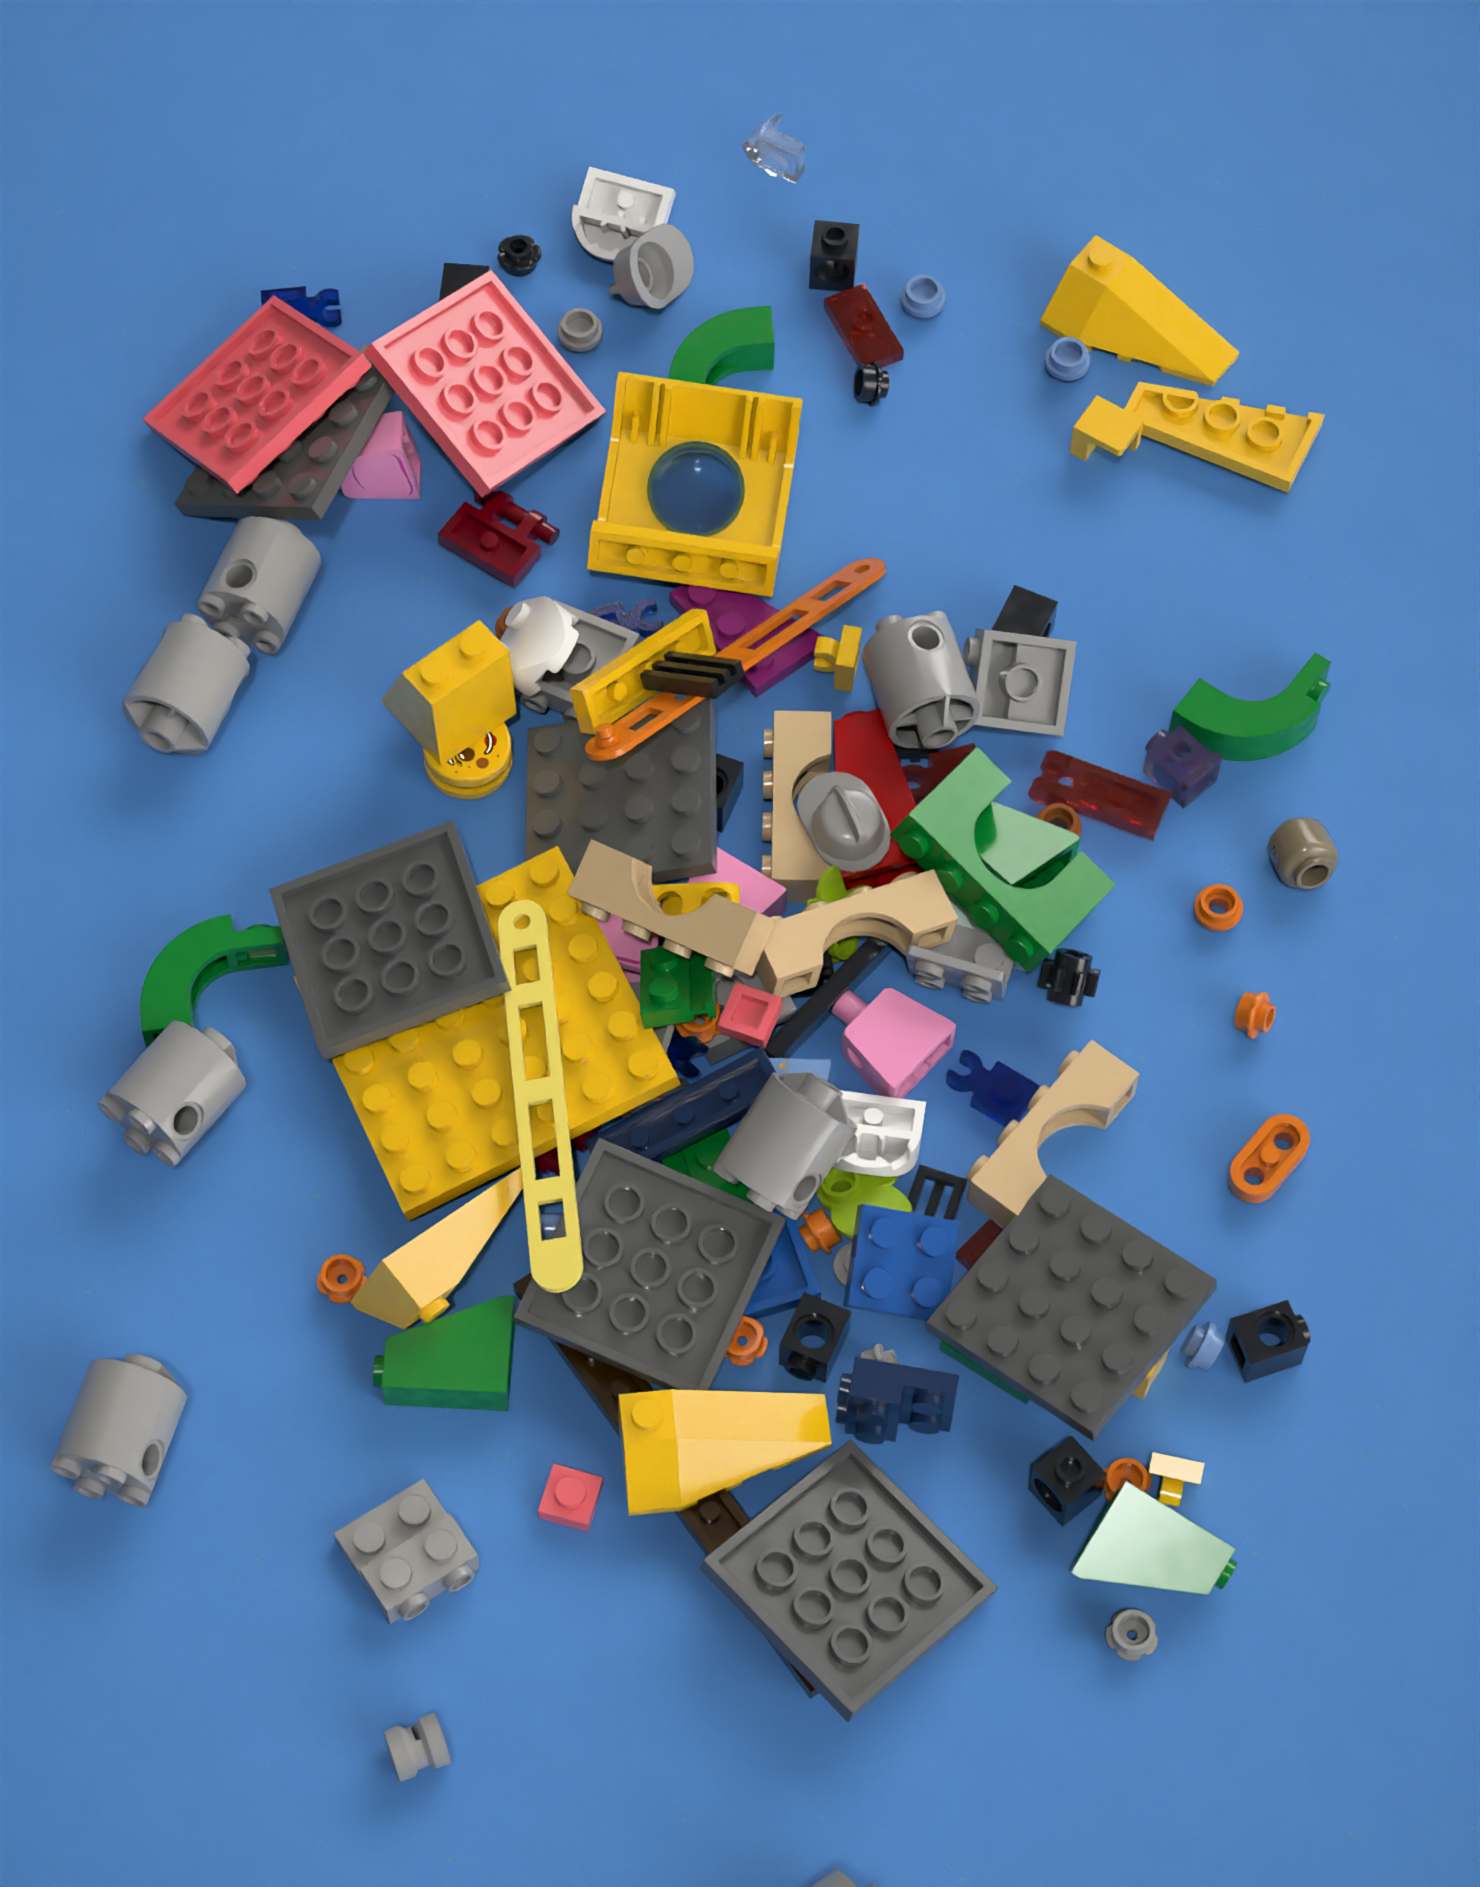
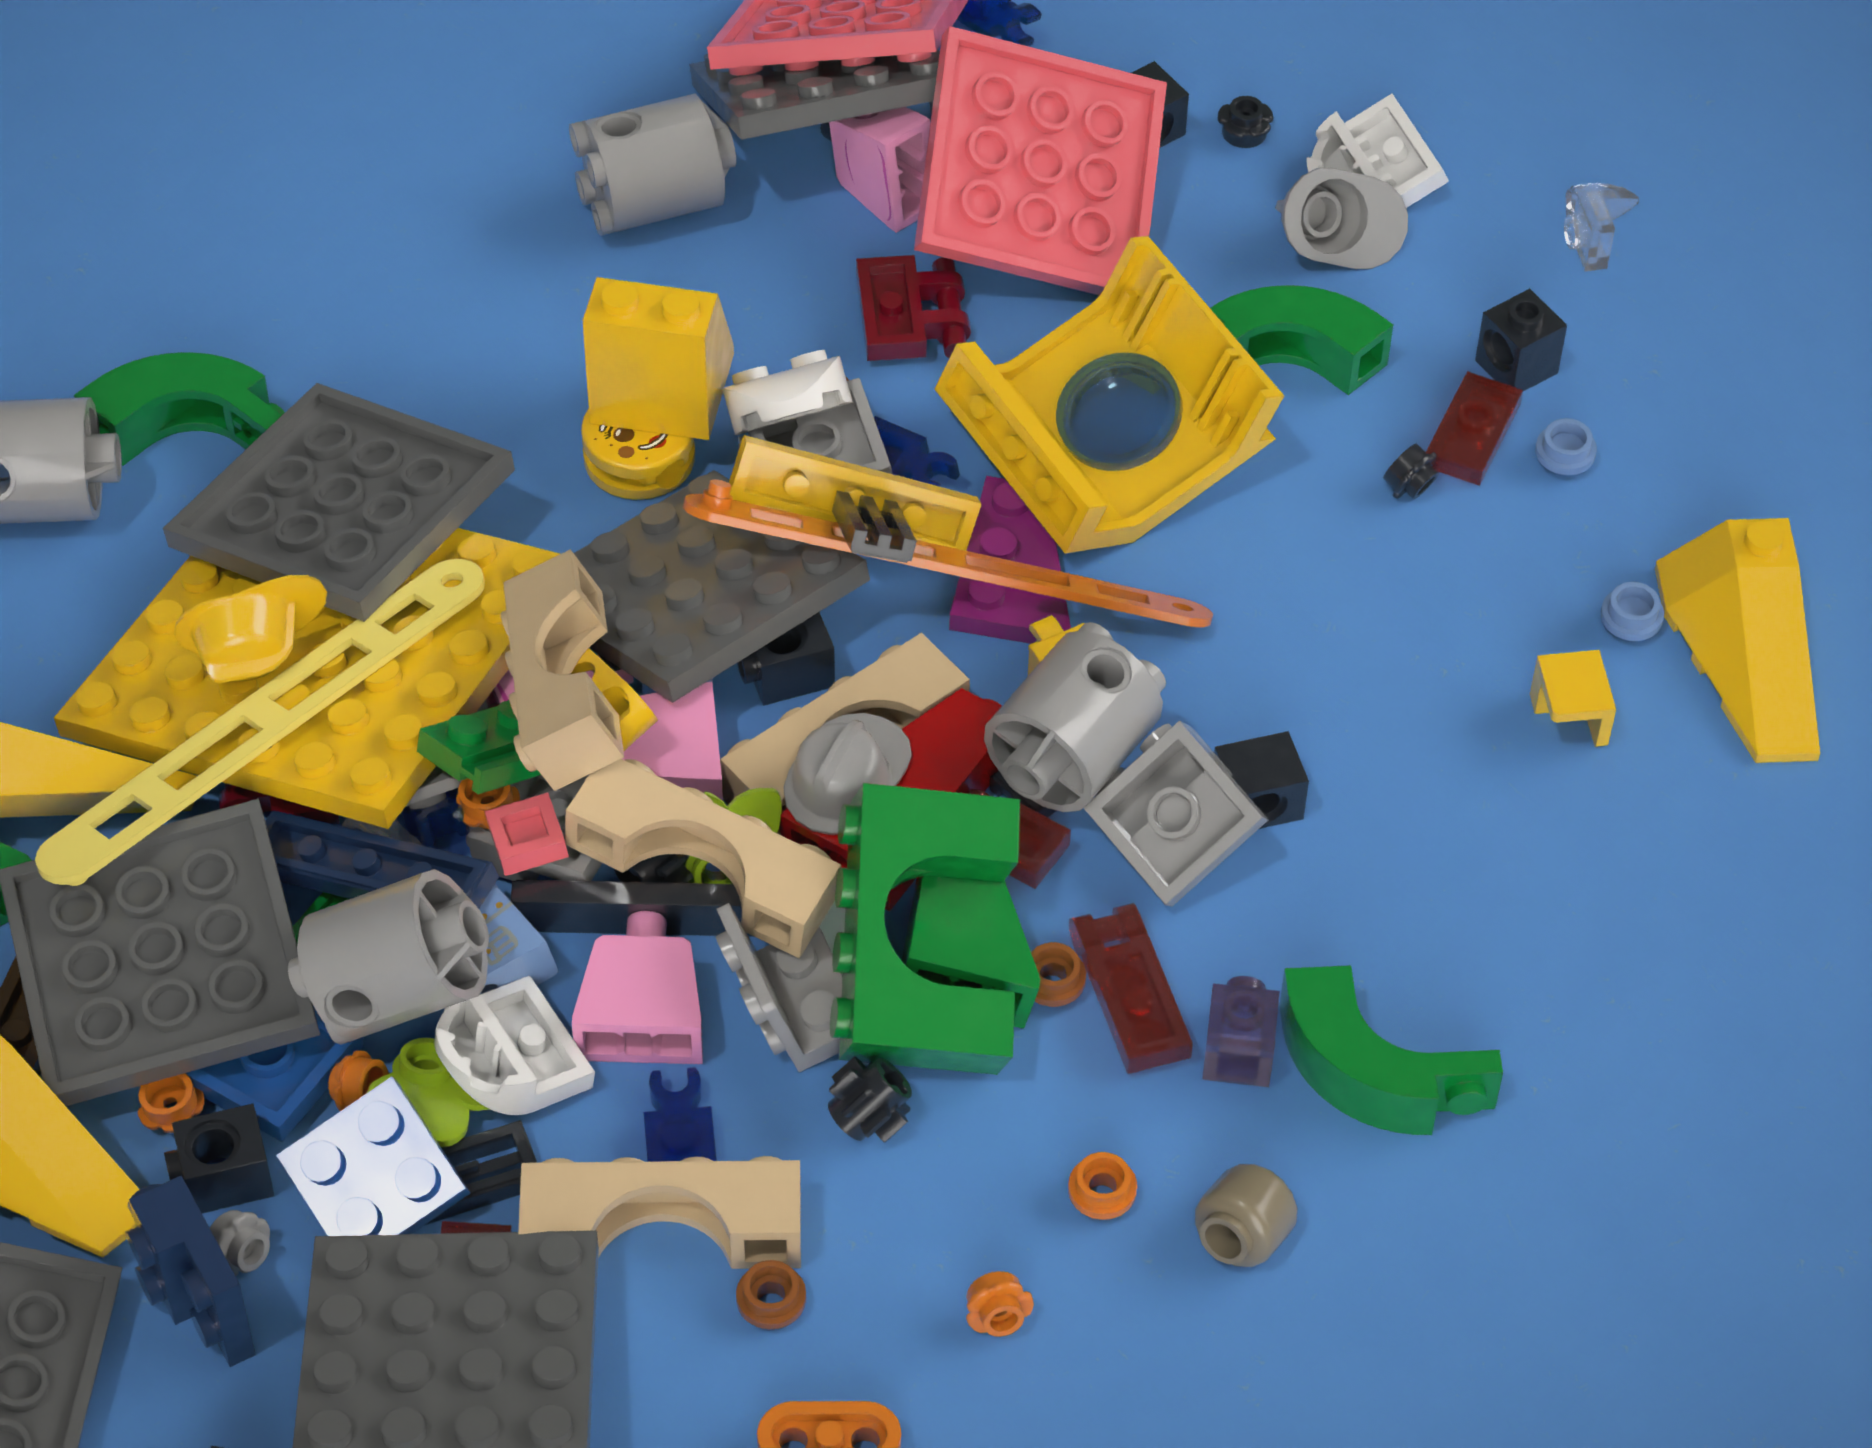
camera: 50 degrees right, 10 degrees down
(186, 687) = (480, 187): light grey cylinder -> none
(481, 1061) = (252, 629): none -> yellow piece
(579, 330) = (1212, 217): light grey plate -> none
(1149, 1108) = (771, 1278): none -> dark orange plate
(1238, 437) = (1703, 807): yellow wing -> none

